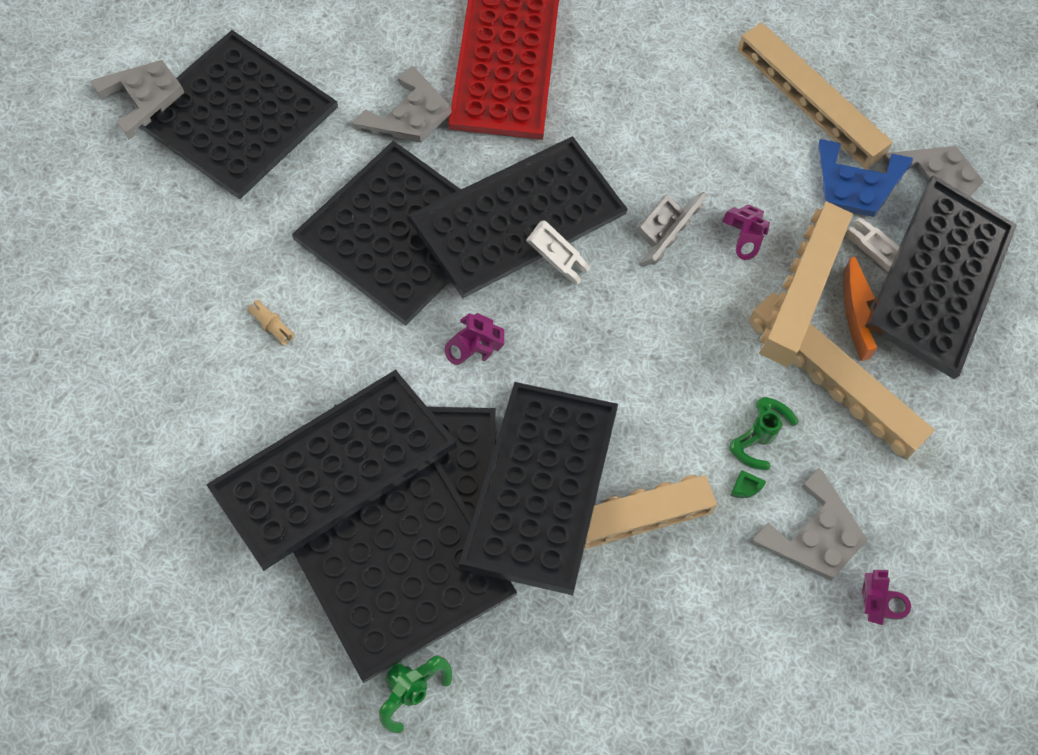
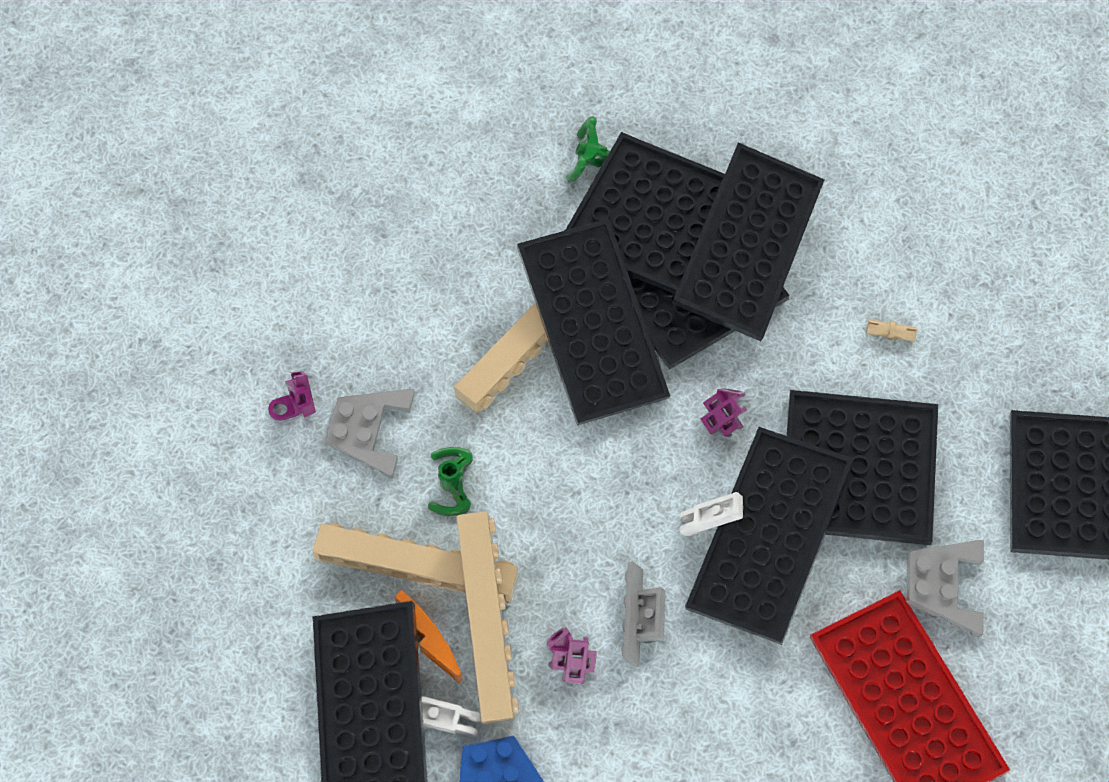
camera: 155 degrees right, 0 degrees up
(747, 485) = (440, 431): green tile -> none

